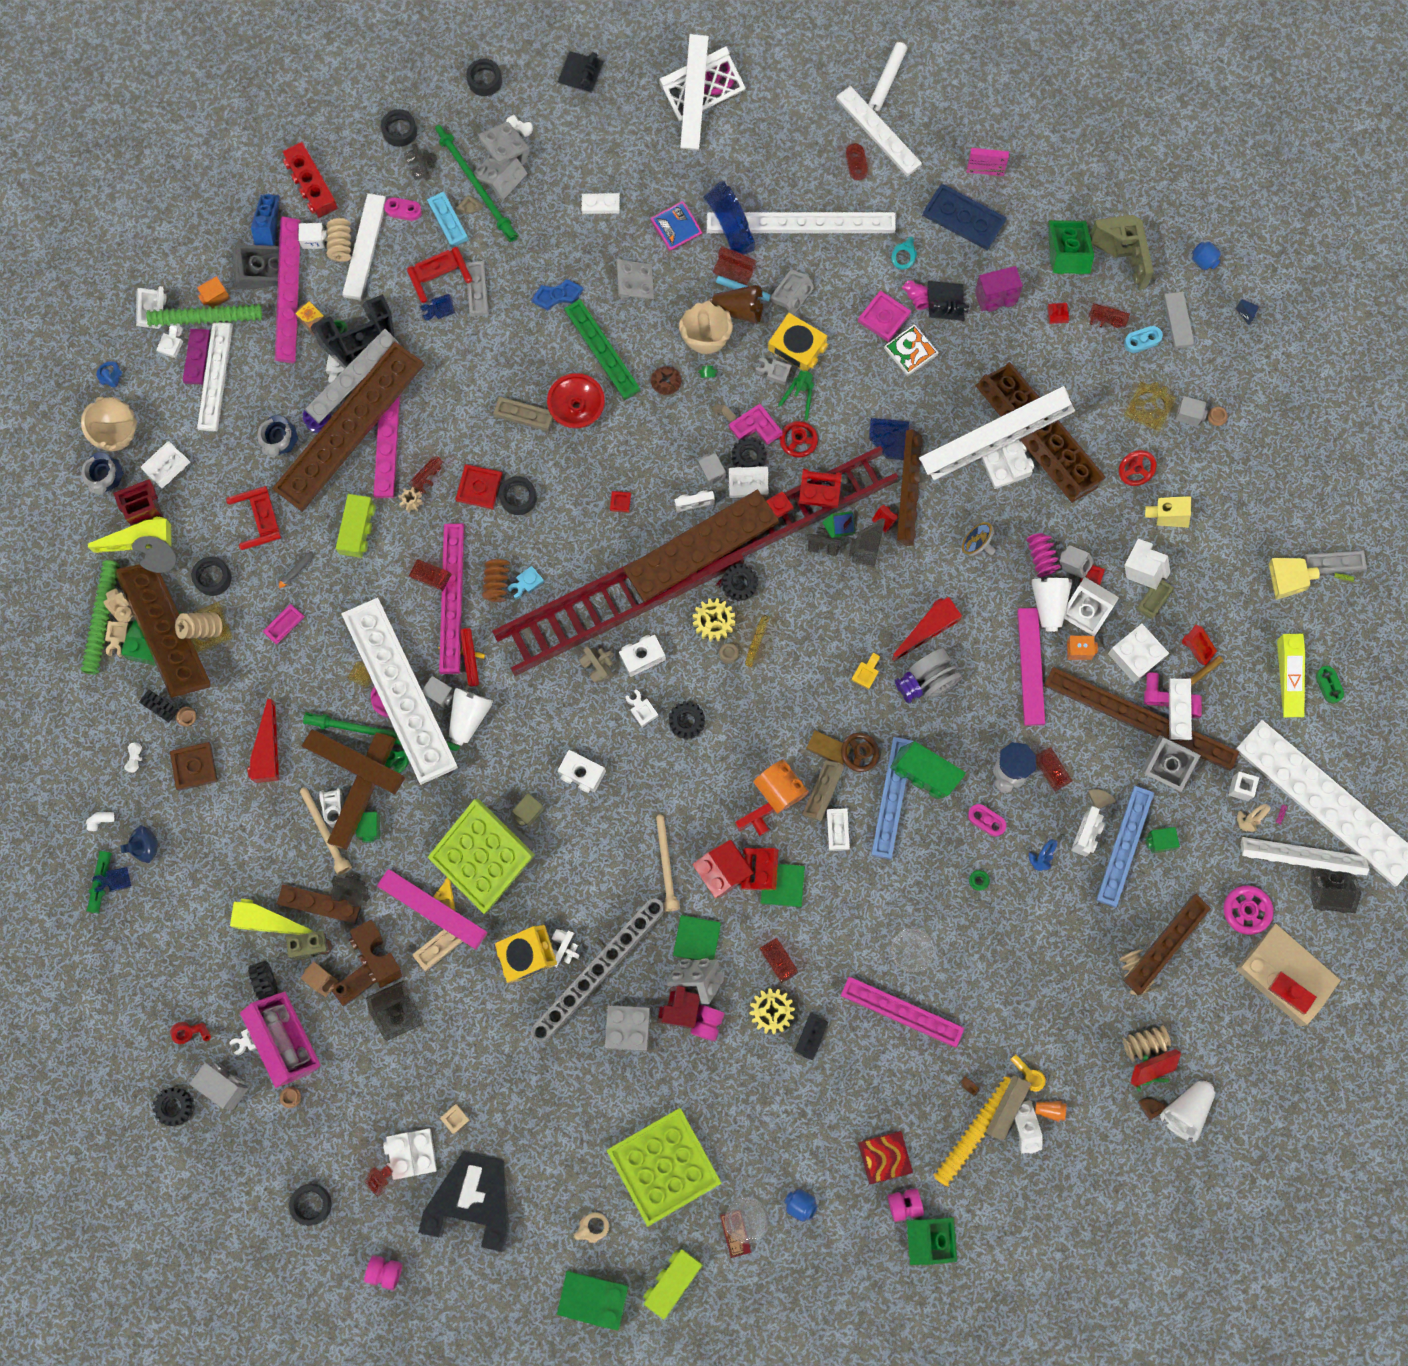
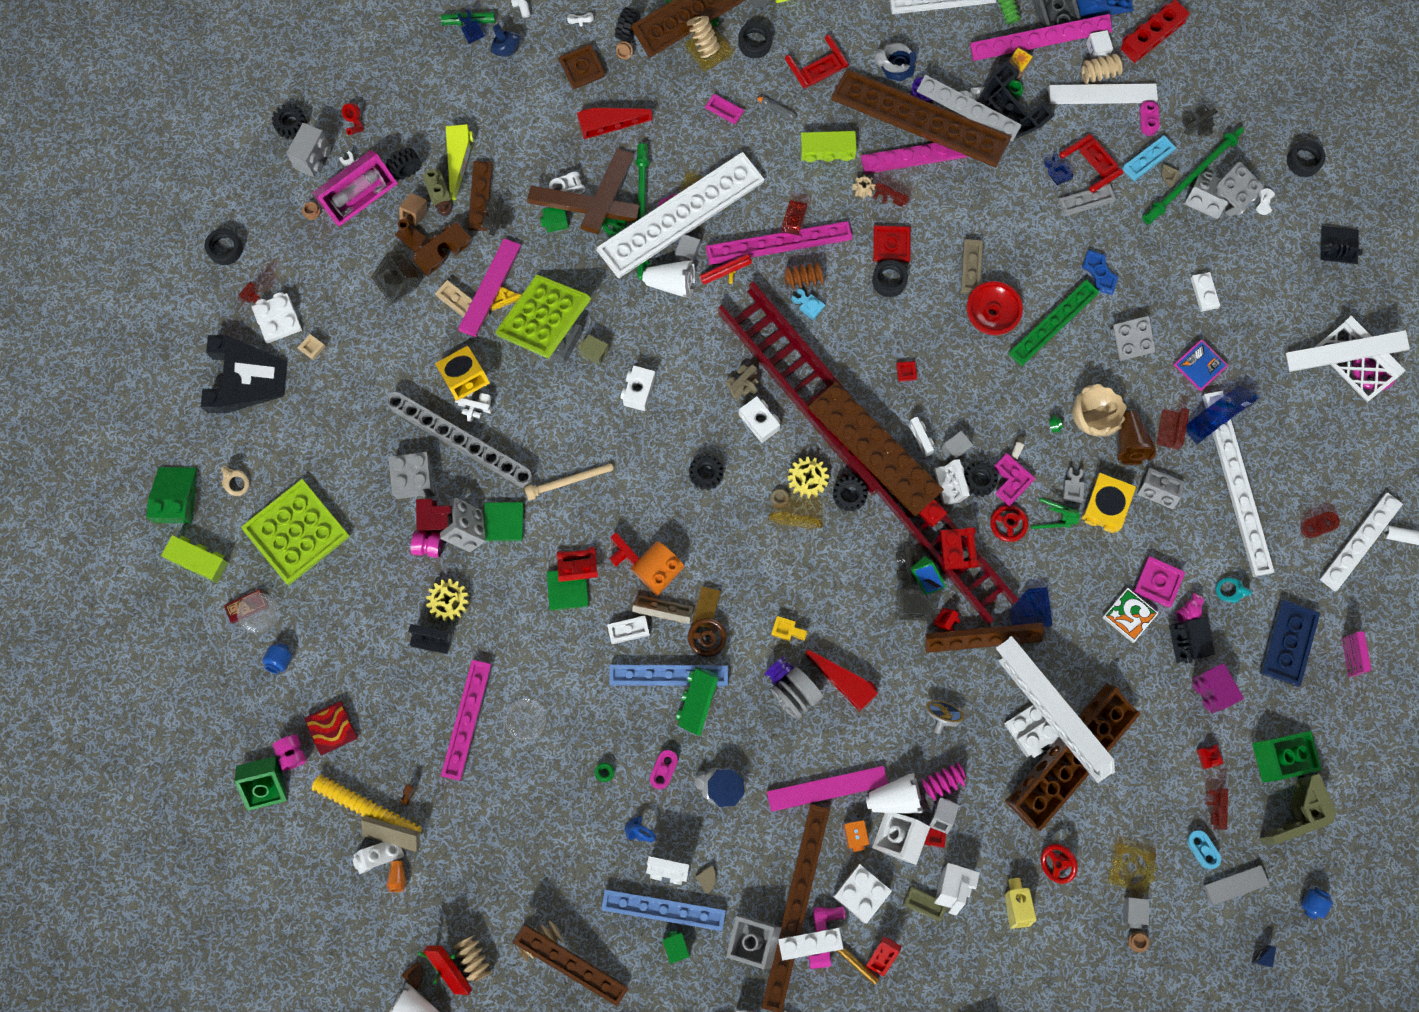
camera: 75 degrees right, 0 degrees up
(341, 864) = (518, 204): tan piece -> none
(382, 1272) = (174, 315): dark pink wheel -> none
(402, 140) = (1224, 106): black tyre -> none
(643, 710) = (708, 431): white plate -> none
(664, 387) = (1040, 396): copper gear -> none
(723, 869) = (569, 530): red slope -> none
(735, 285) = (1153, 435): medium azure bar -> none
(779, 960) = (495, 597): clear red plate -> none
(1033, 1076) = (424, 856): yellow plate -> none
(1052, 769) = (727, 826): clear red plate -> none

